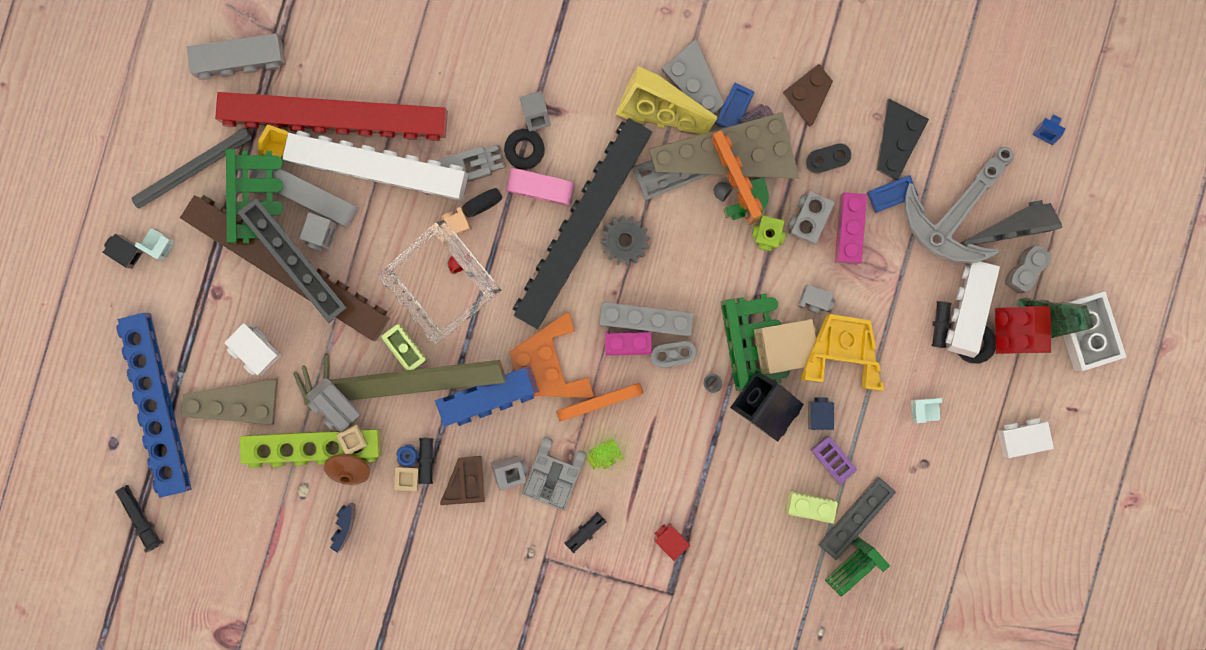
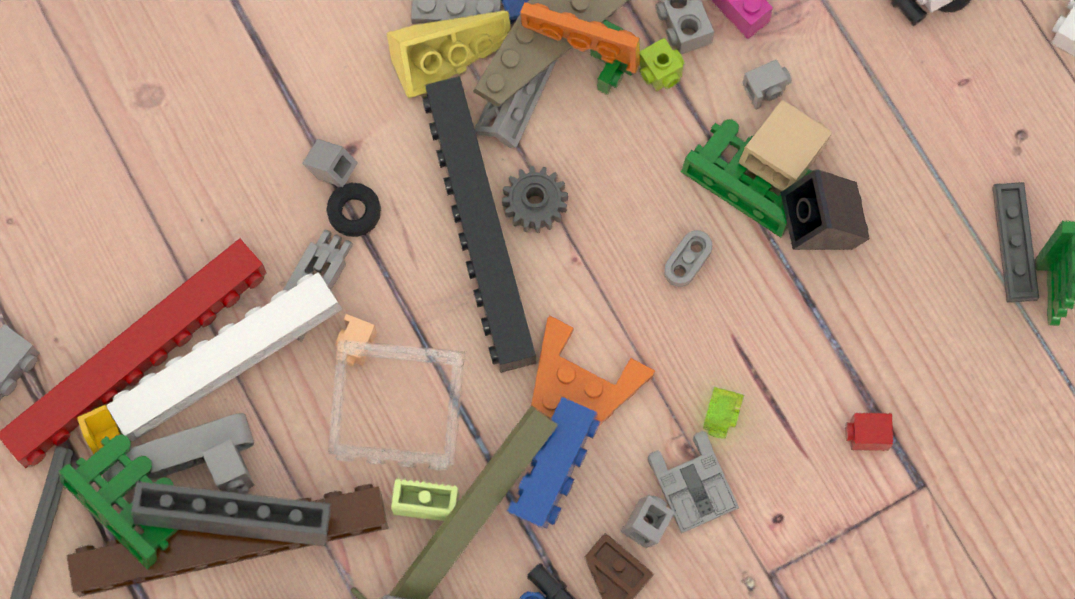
camera: 45 degrees left, 15 degrees down
(454, 266) = (395, 376): red hinge -> none
(482, 202) = (363, 291): black tyre -> none
(540, 186) = (404, 227): bright pink beam -> none
(585, 532) = (781, 506): black pin -> none
(599, 402) = (665, 369): orange beam -> none
(628, 344) = (636, 288): dark pink brick -> none
(646, 319) = (629, 250): light grey brick -> none
(708, 381) = (746, 248): dark grey hinge -> none
(722, 190) = (578, 72): dark grey hinge -> none
(811, 507) = (964, 269): yellowish green brick -> none
(820, 446) = (914, 217): medium lavender slope -> none
(821, 414) = (881, 179): dark blue brick -> none
(844, 341) = (836, 90): yellow wing -> none
(925, 409) = (968, 84): light aqua panel -> none

